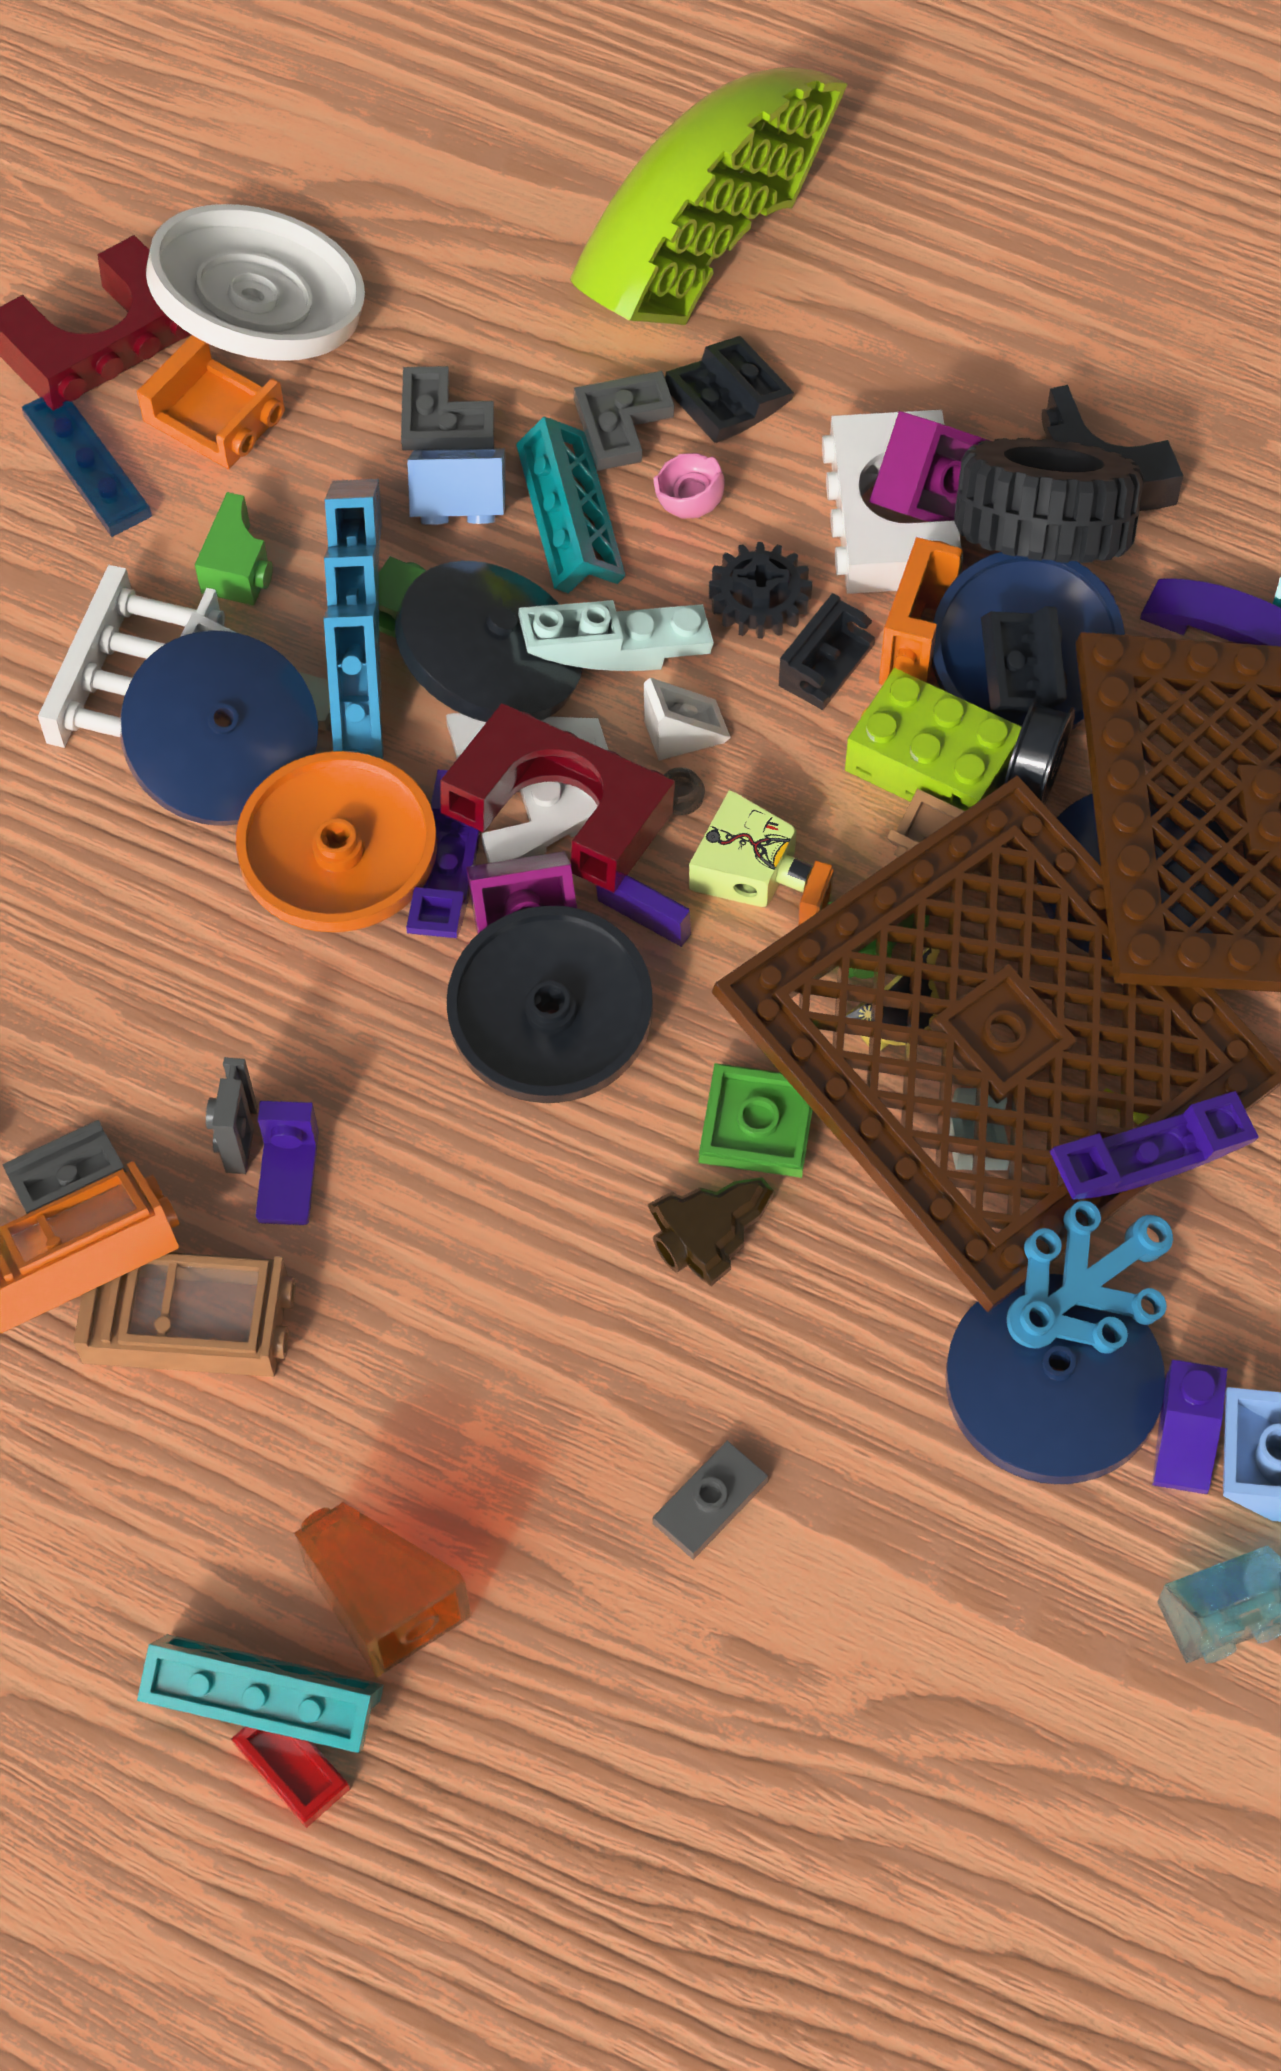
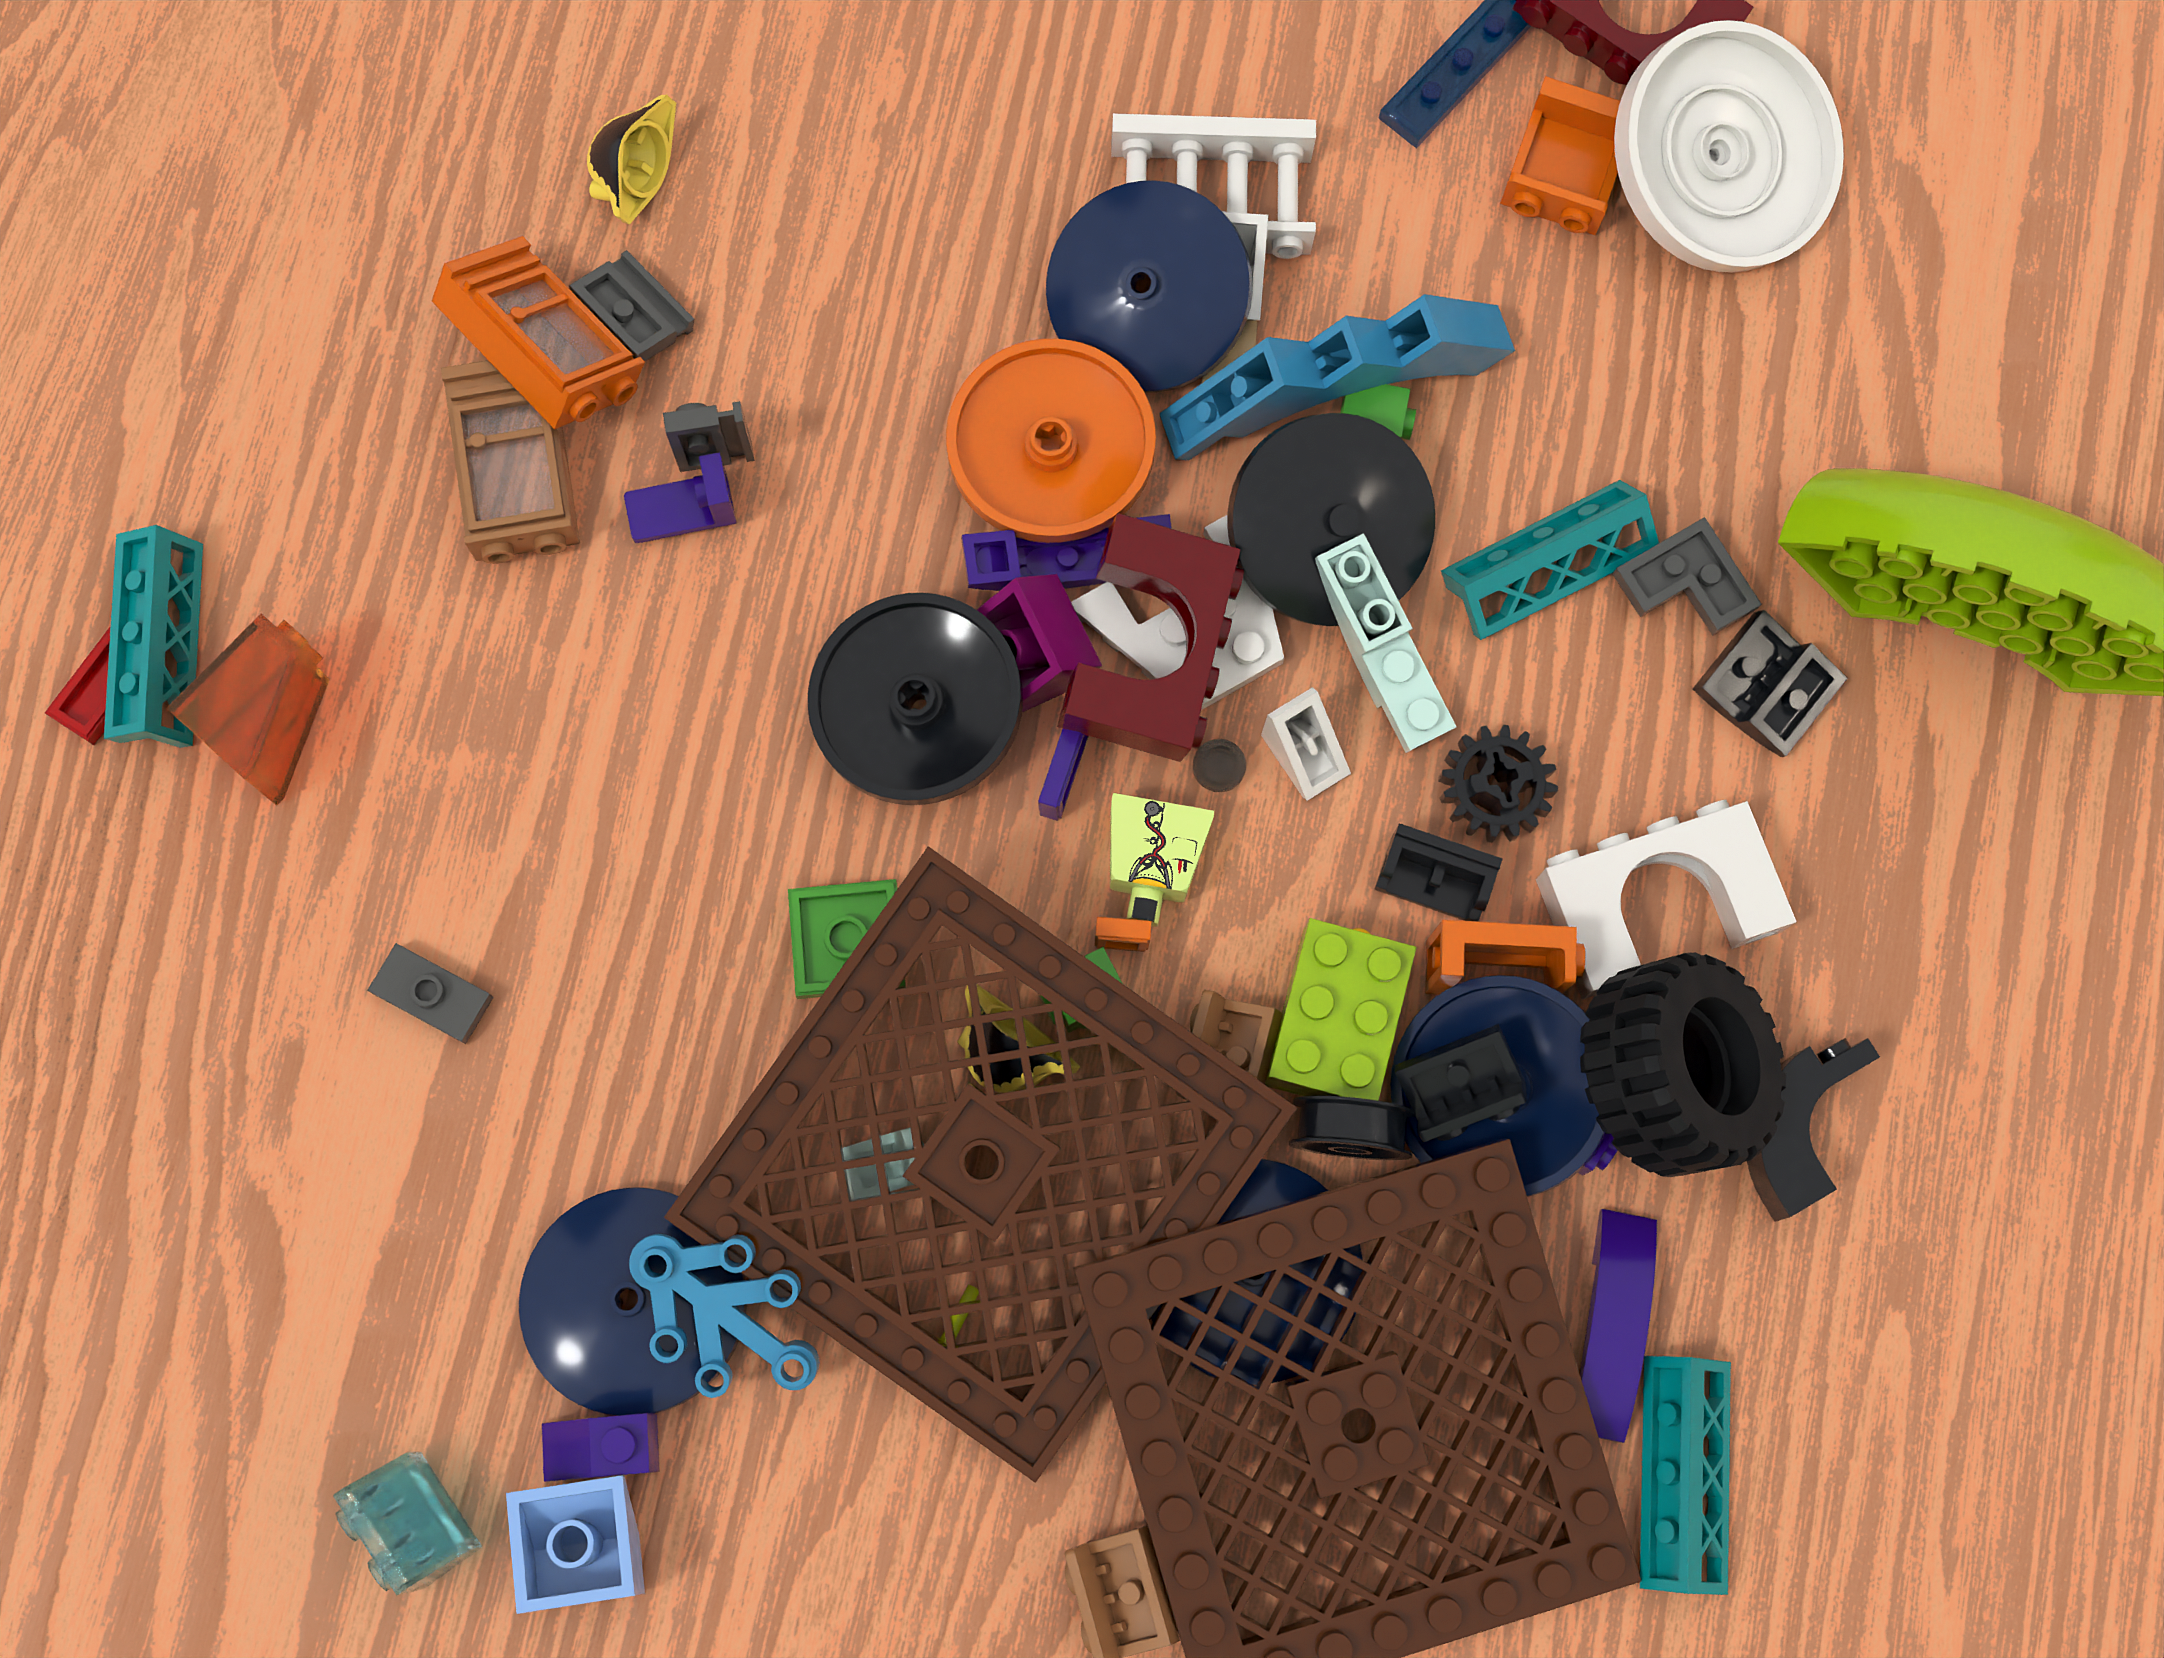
camera: 70 degrees right, 15 degrees up
(231, 557) = (1376, 234): bright green arch -> none
(436, 423) = (1619, 386): dark grey plate -> none
(456, 485) = (1542, 431): light blue slope -> none
(690, 485) = (1613, 673): bright pink hair -> none
(708, 1226) = (715, 918): dark brown rock -> none
(922, 468) = (1699, 913): magenta slope -> none
(1154, 1151) = (878, 1345): dark purple slope -> none

